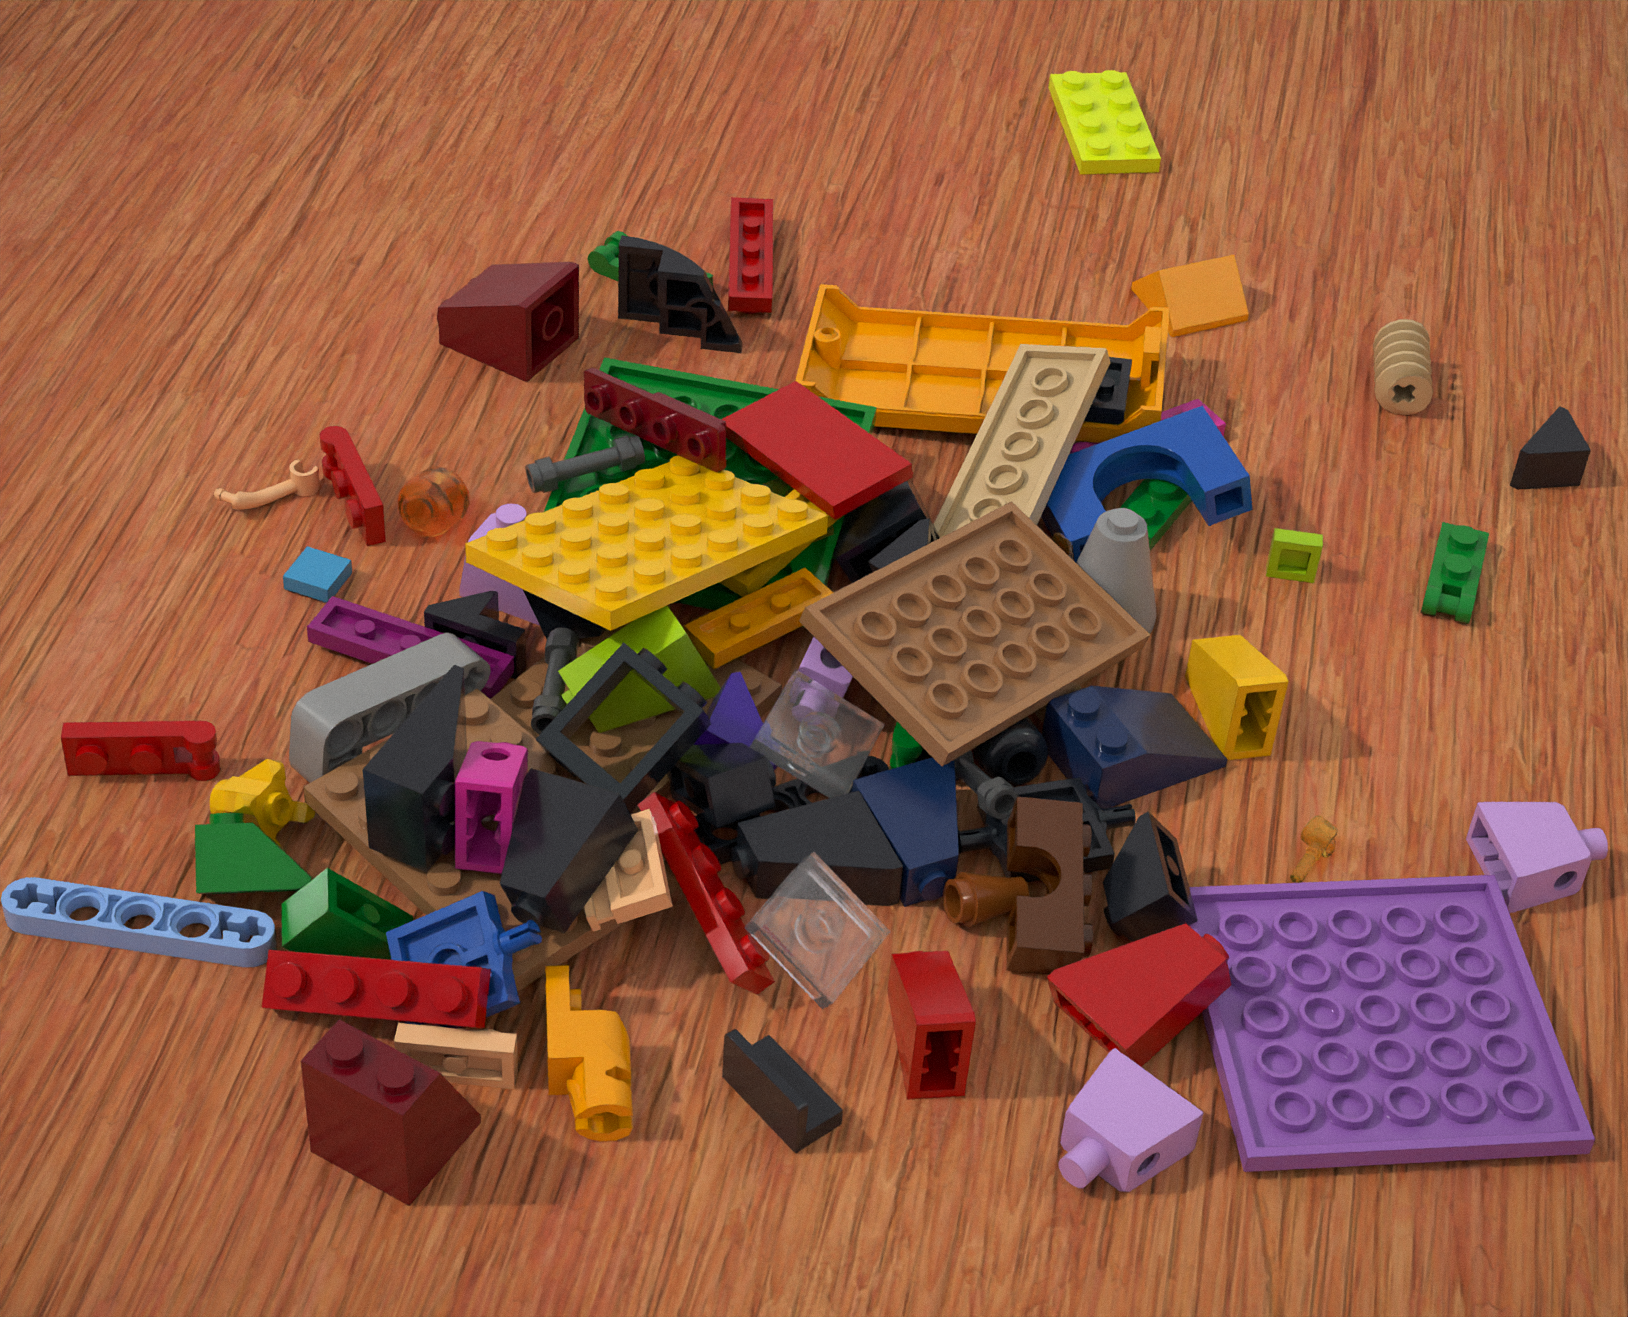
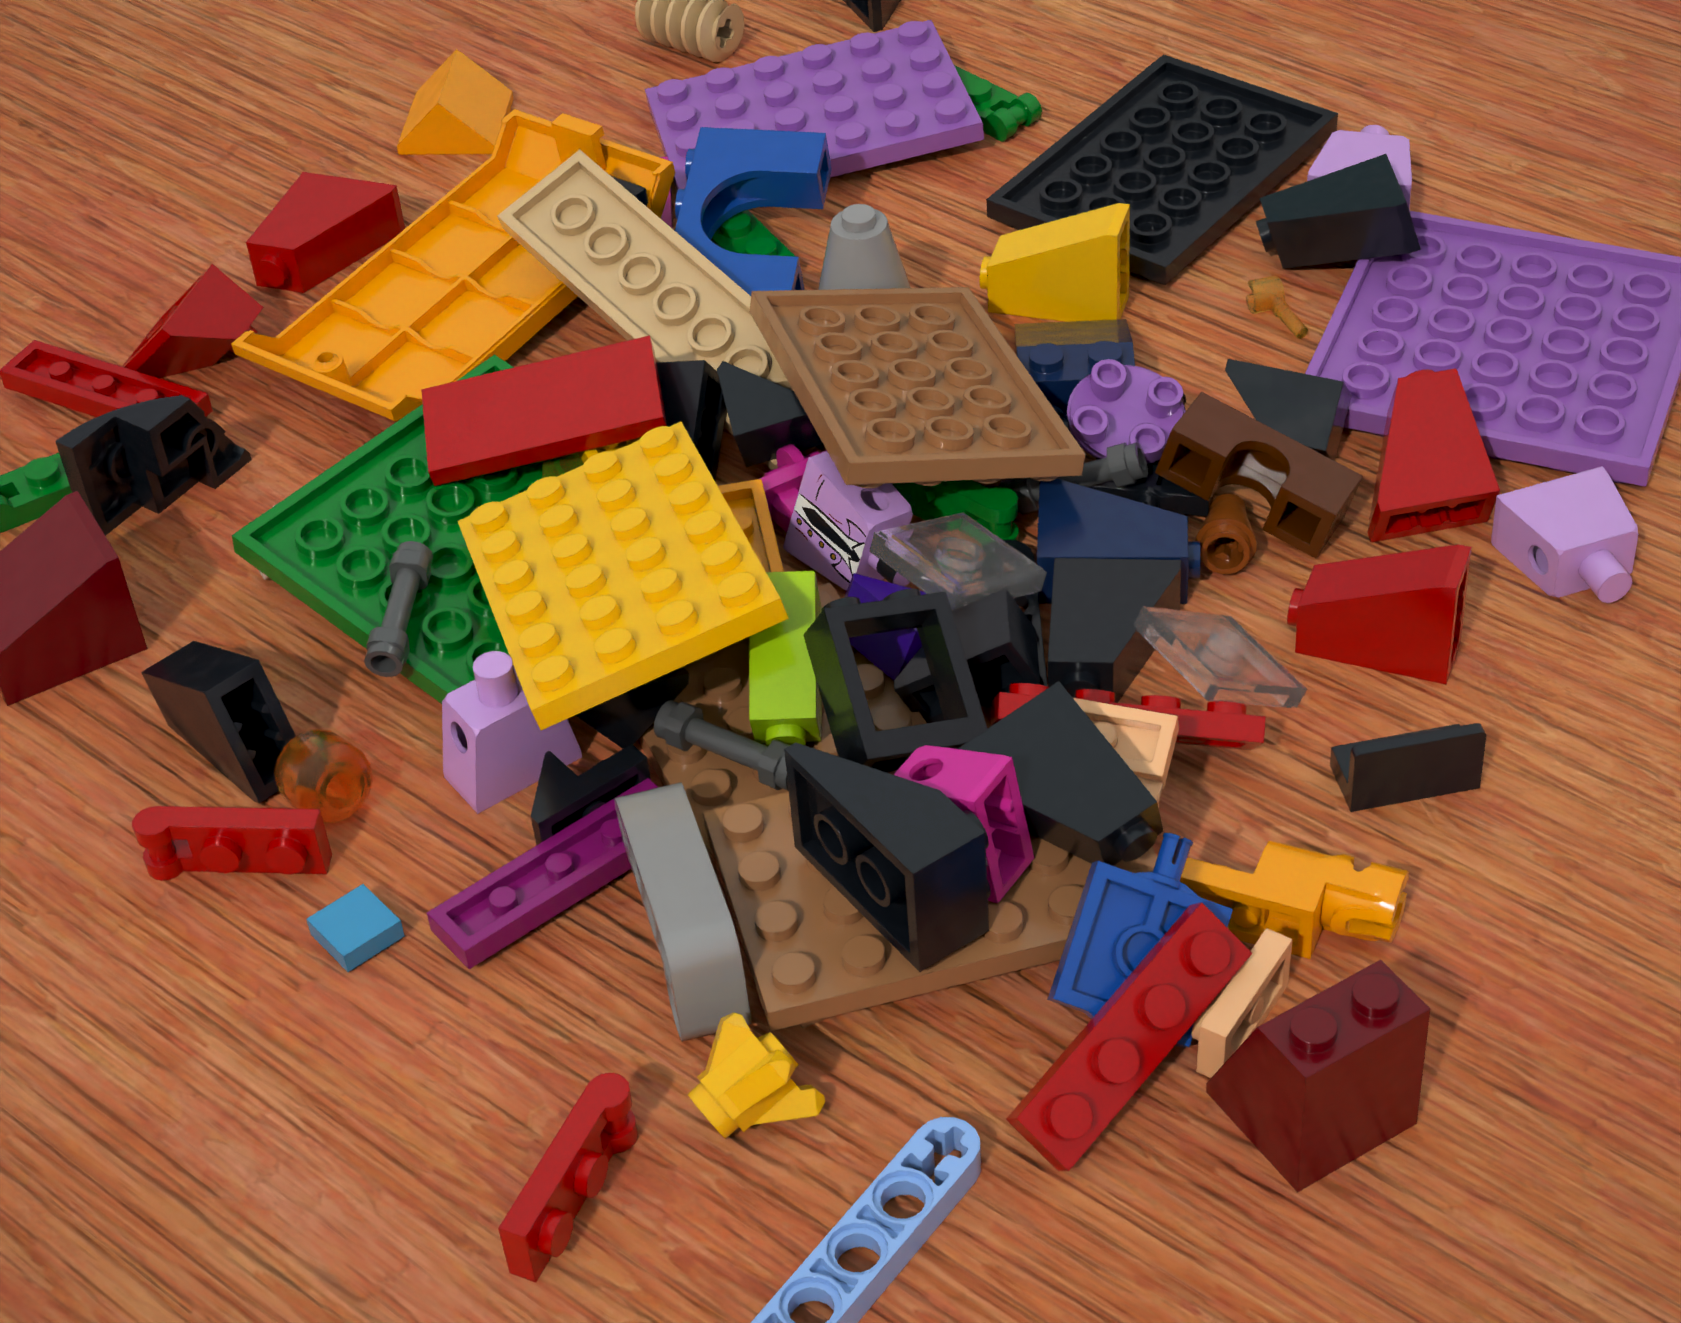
camera: 55 degrees left, 0 degrees up
(242, 859) = (844, 1113): green slope -> none
(299, 483) = (167, 906): light nougat piece -> none
(339, 919) = (991, 1055): green slope -> none
(461, 426) = (224, 712): none -> black slope
(657, 419) = (410, 507): dark red bracket -> none
(832, 261) = (196, 327): none -> red slope
(988, 279) = (322, 230): none -> red slope
(1061, 770) = (1124, 406): none -> medium lavender dish
(1104, 123) = (124, 79): neon yellow plate -> none
(1294, 555) = (893, 177): lime plate -> none
(1360, 485) = (871, 95): none -> medium lavender plate
(1441, 844) = (1339, 217): none -> black slope
(1451, 718) = (1180, 150): none -> black plate

